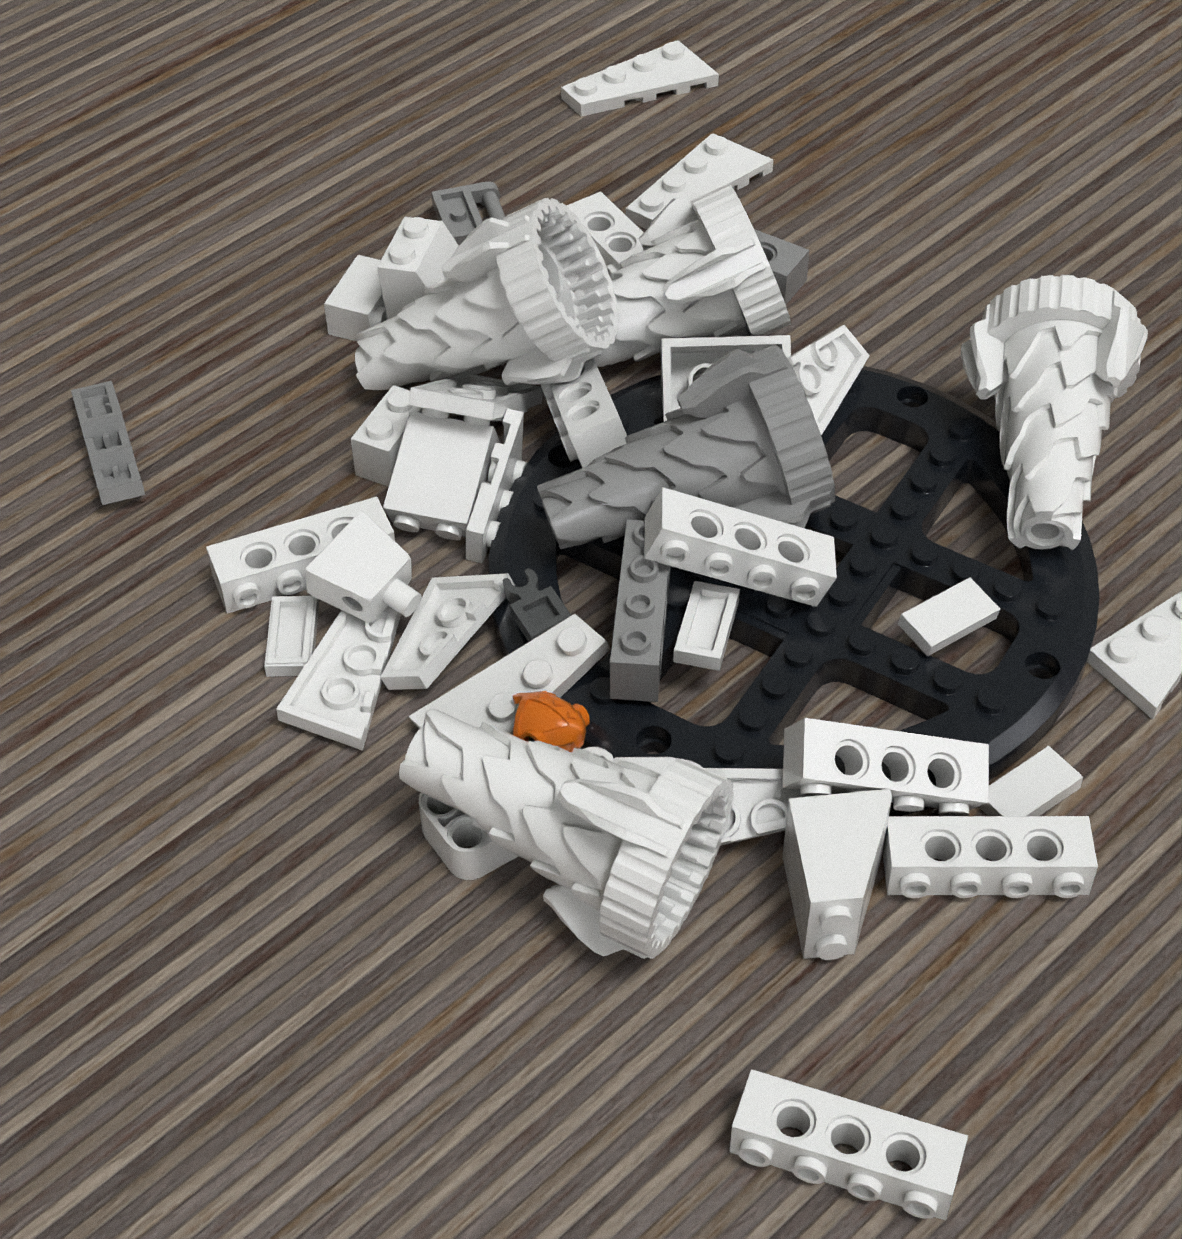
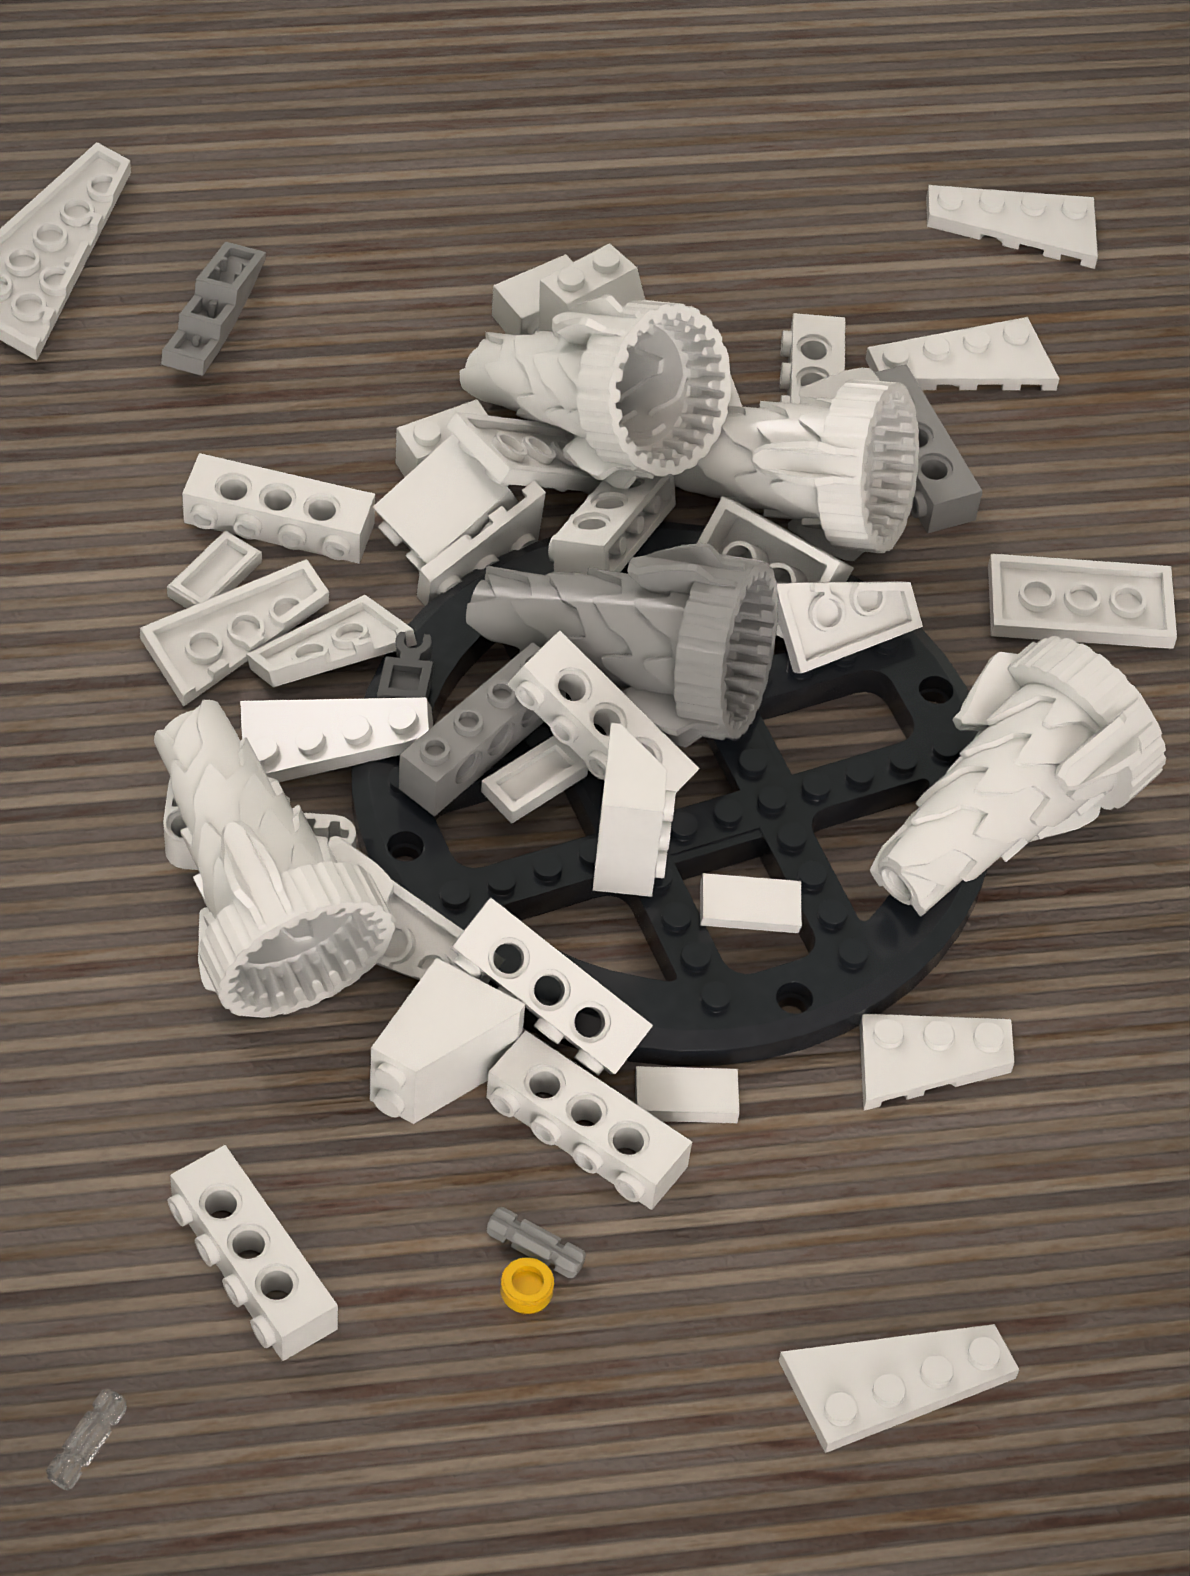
camera: 30 degrees right, 5 degrees up
(363, 572) = (296, 554): white torso -> none
(458, 207) = (707, 266): light grey plate -> none
(550, 720) = (325, 778): orange helmet -> none
(831, 594) = (632, 818): none -> white slope
(934, 288) = (1082, 601): none -> white plate
(1041, 978) = (536, 1242): none -> light grey axle
(1067, 1017) = (527, 1285): none -> yellow tile

